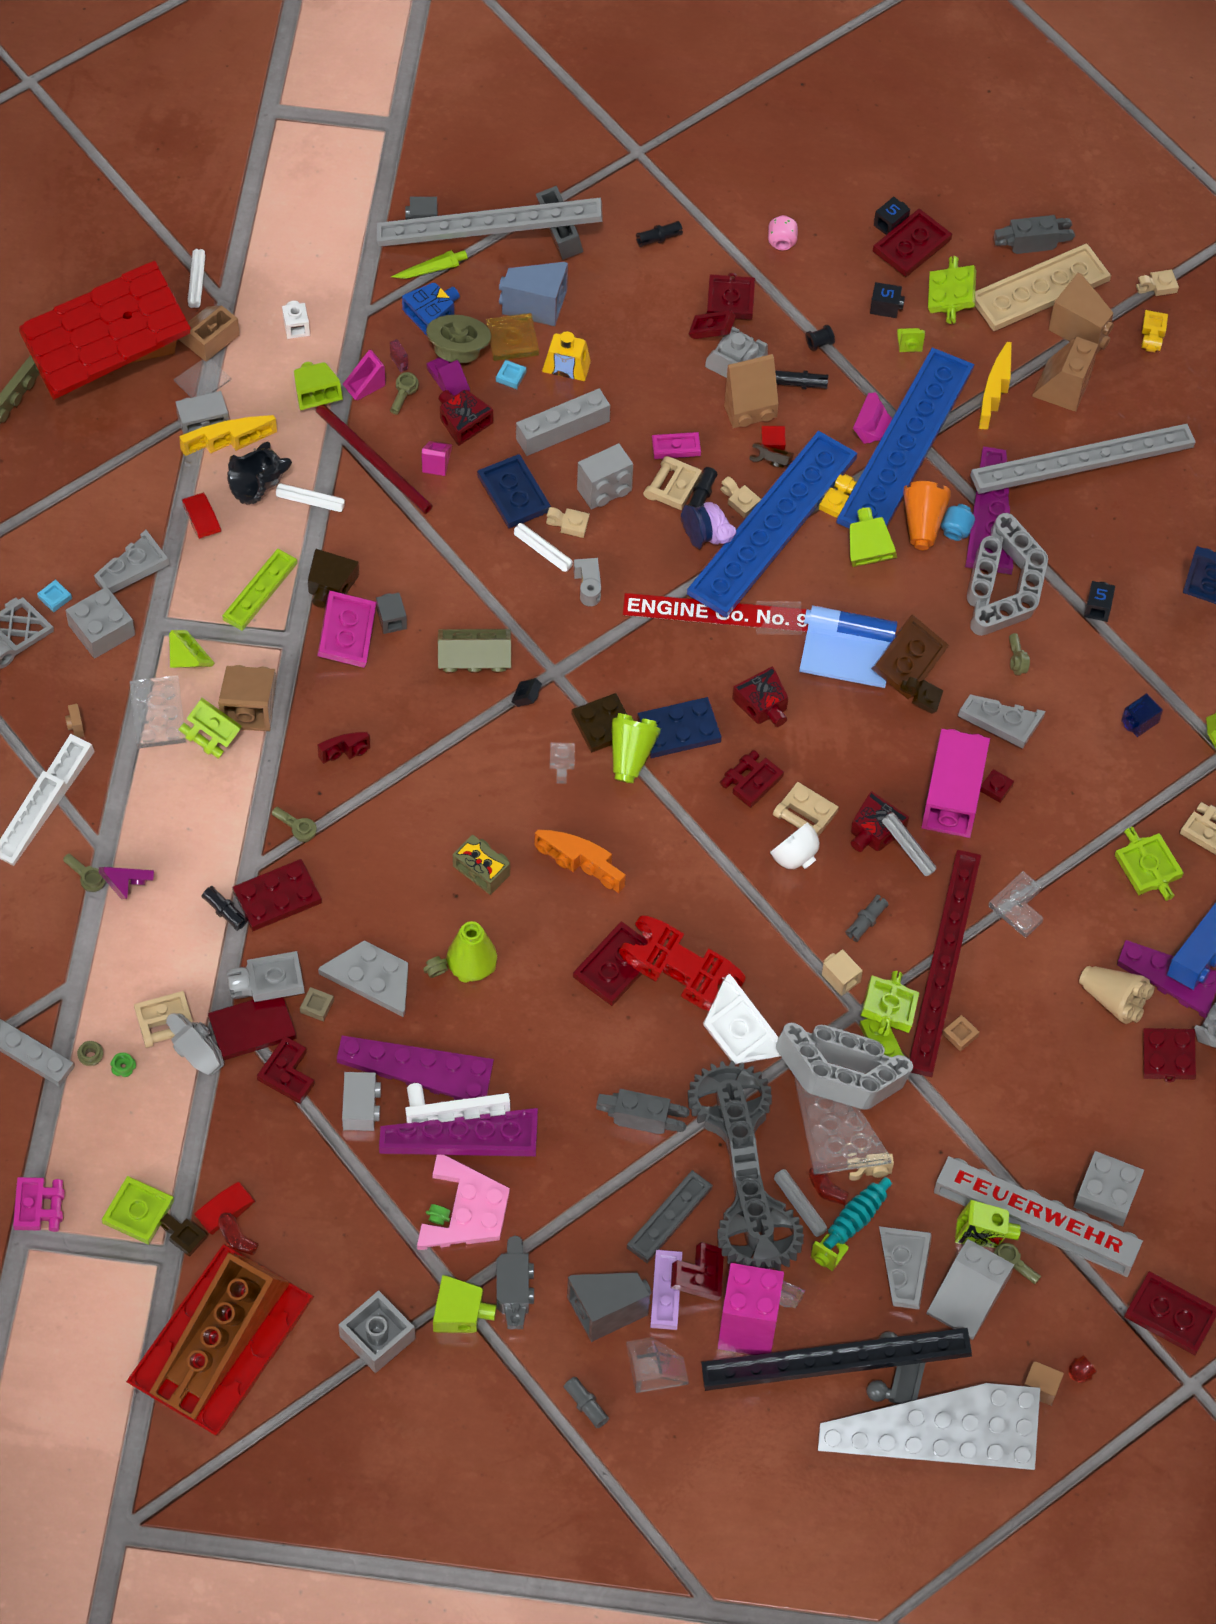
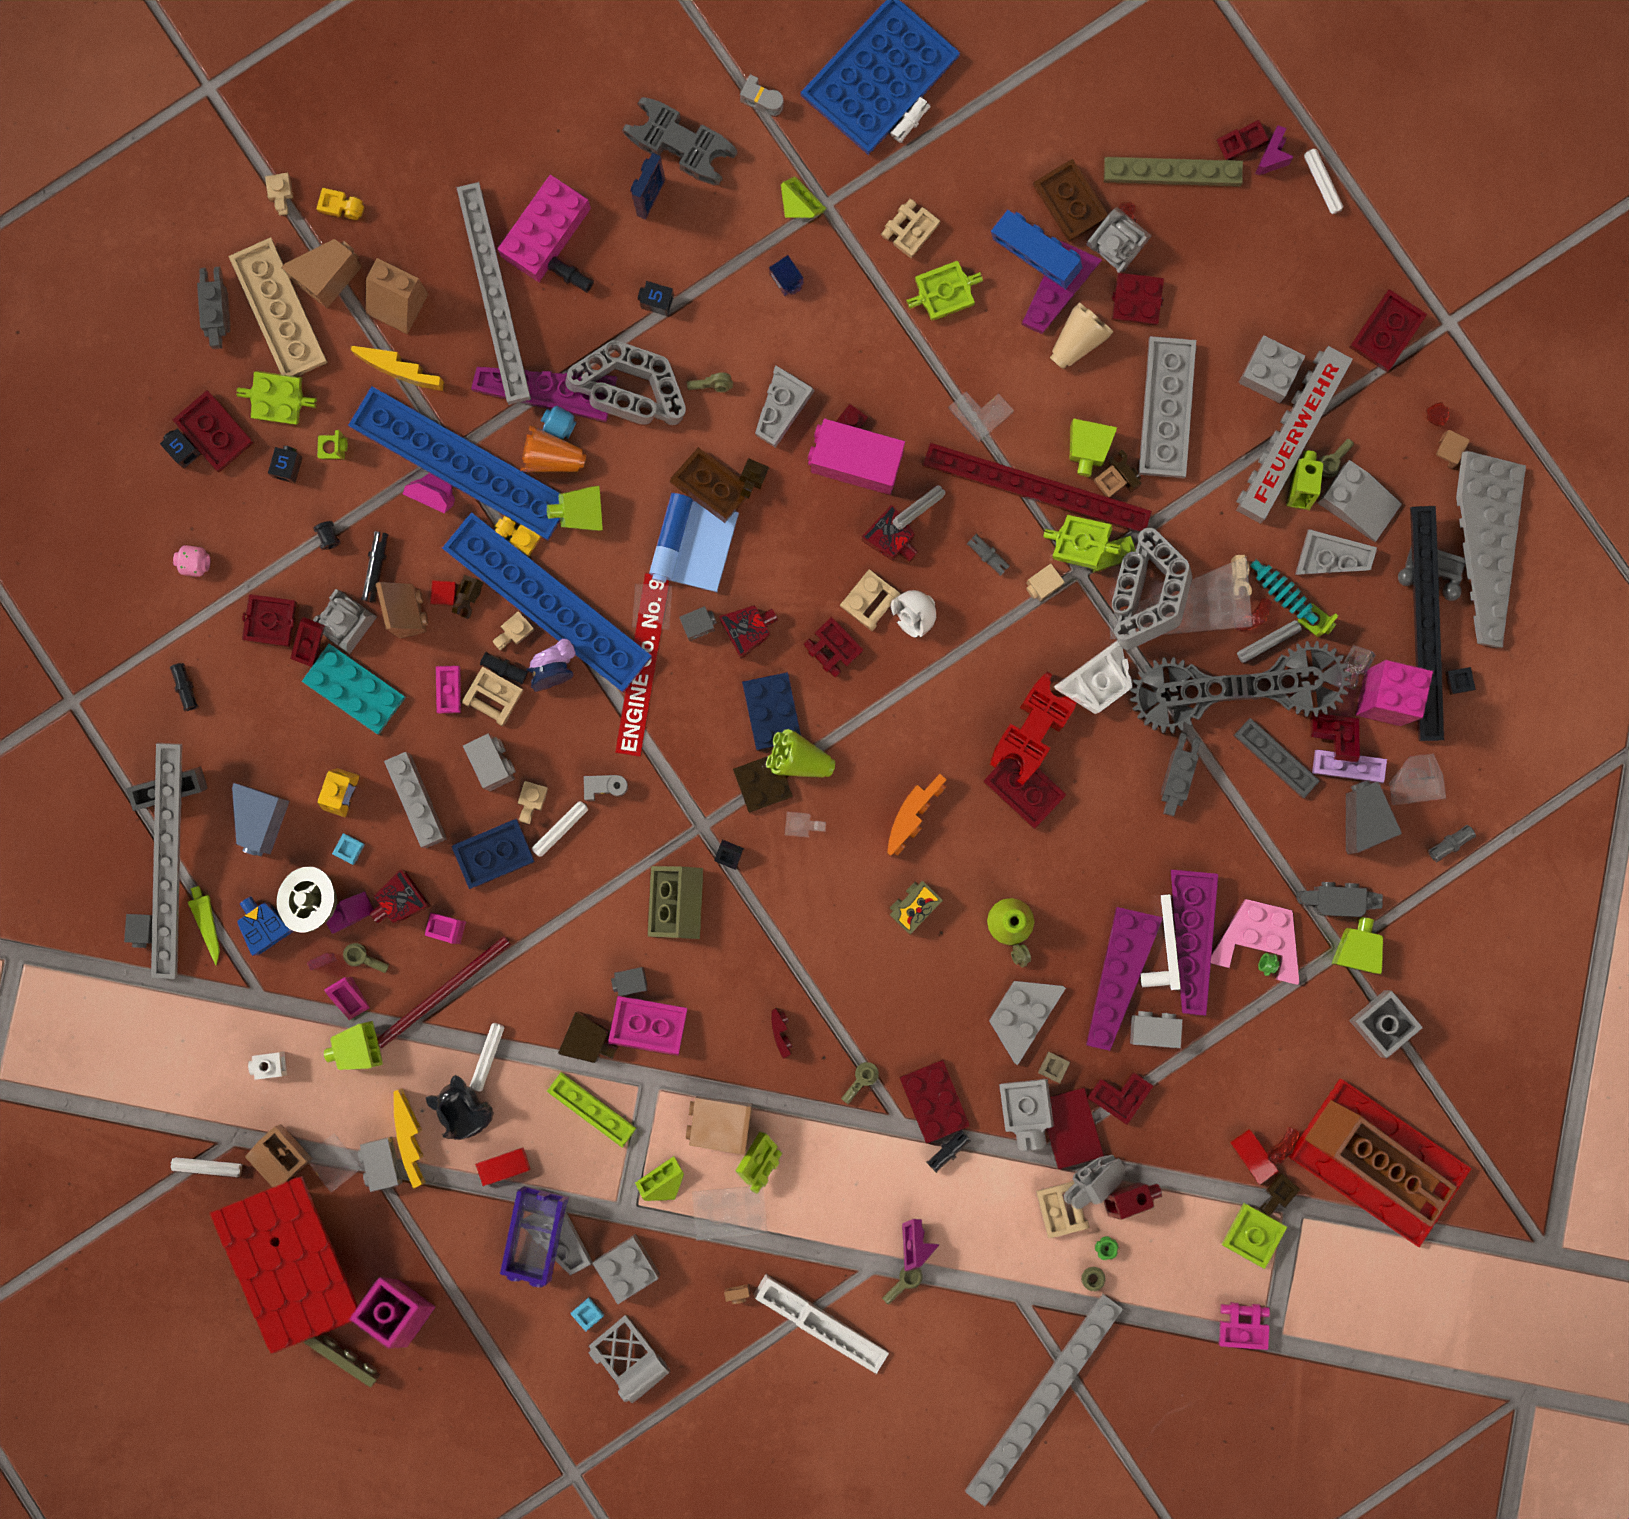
camera: 80 degrees left, 25 degrees up
(58, 415) = (392, 1313): none -> dark pink brick
(133, 537) = (533, 1236): none -> door
(174, 1072) = (1131, 1200): none -> dark red torso
(512, 337) = (304, 844): clear yellow plate -> none
(669, 370) = (353, 689): none -> teal plate
(764, 652) = (698, 623): none -> dark grey brick
(774, 1405) = (1460, 680): none -> black plate
(969, 1049) = (1130, 475): none -> dark brown plate
(999, 1010) = (1089, 444): none -> lime torso
(1051, 1086) = (1167, 407): none -> light grey plate
(1113, 526) = (570, 274): none -> black pin
(1157, 499) = (544, 228): none -> dark pink brick

